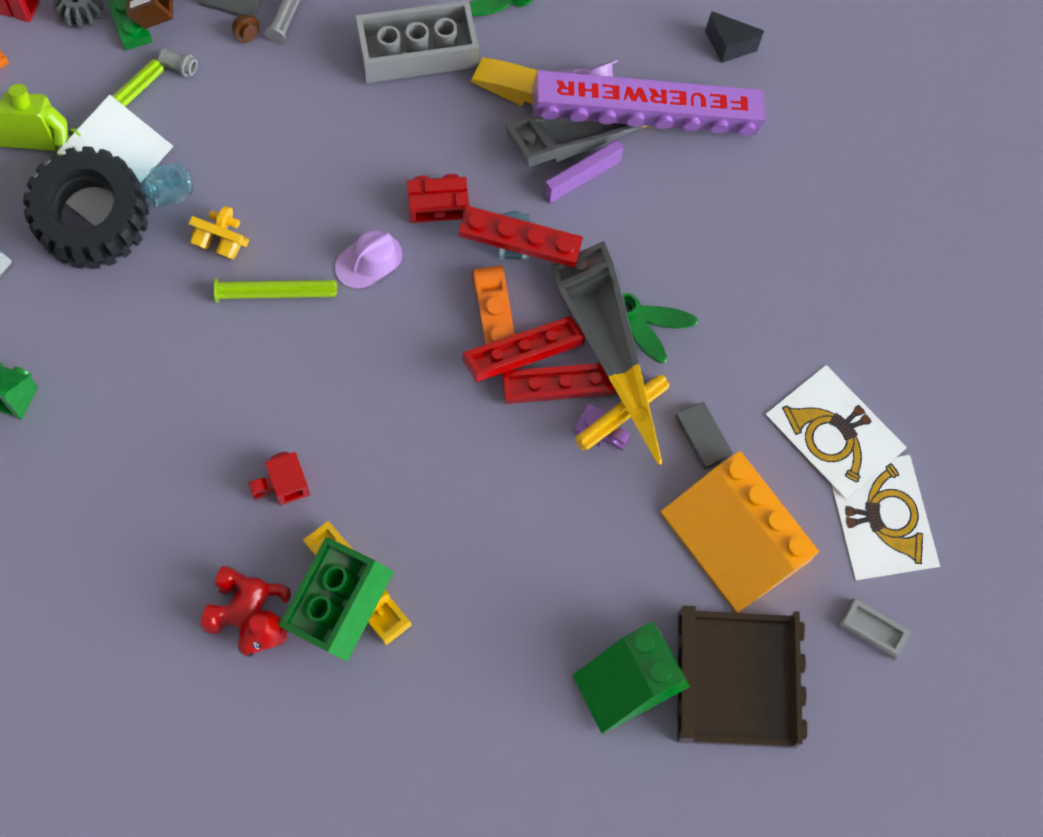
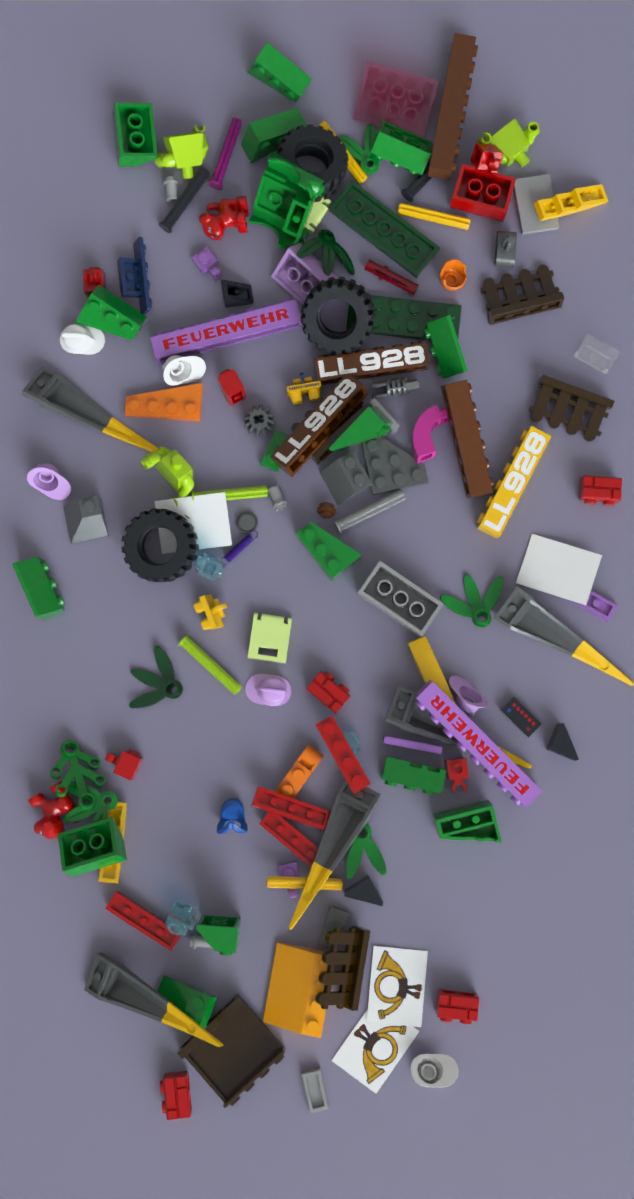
camera: 50 degrees right, 15 degrees up
(168, 116) = (247, 522): none -> dark grey piece
(185, 142) = (239, 547): none -> dark purple piece
(199, 526) = (77, 772): none -> green plant
(241, 360) = (151, 679): none -> dark green plant
(286, 63) = (327, 550): none -> green wedge
(294, 550) = (100, 808): none -> green plant
(312, 196) = (270, 634): none -> yellowish green container
(463, 421) = (232, 811): none -> blue piece
(484, 634) = (142, 920): none -> red plate
(526, 584) = (181, 919): none -> clear light blue brick
(538, 728) = (121, 987): none -> dark grey plate
(575, 591) = (198, 941): none -> light grey pin
(588, 542) = (220, 932): none -> green slope
(620, 196) = (413, 775): none -> green wedge
(656, 153) = (457, 770): none -> red brick
(663, 52) = (520, 717): none -> black tile
(697, 360) = (364, 891): none -> black slope
(727, 188) = (468, 823): none -> green wedge
(733, 794) = (177, 1095): none -> red brick
(774, 454) = (352, 973): none -> dark brown fence
(917, 384) = (457, 1006): none -> red brick
(971, 469) = (434, 1070): none -> white piece

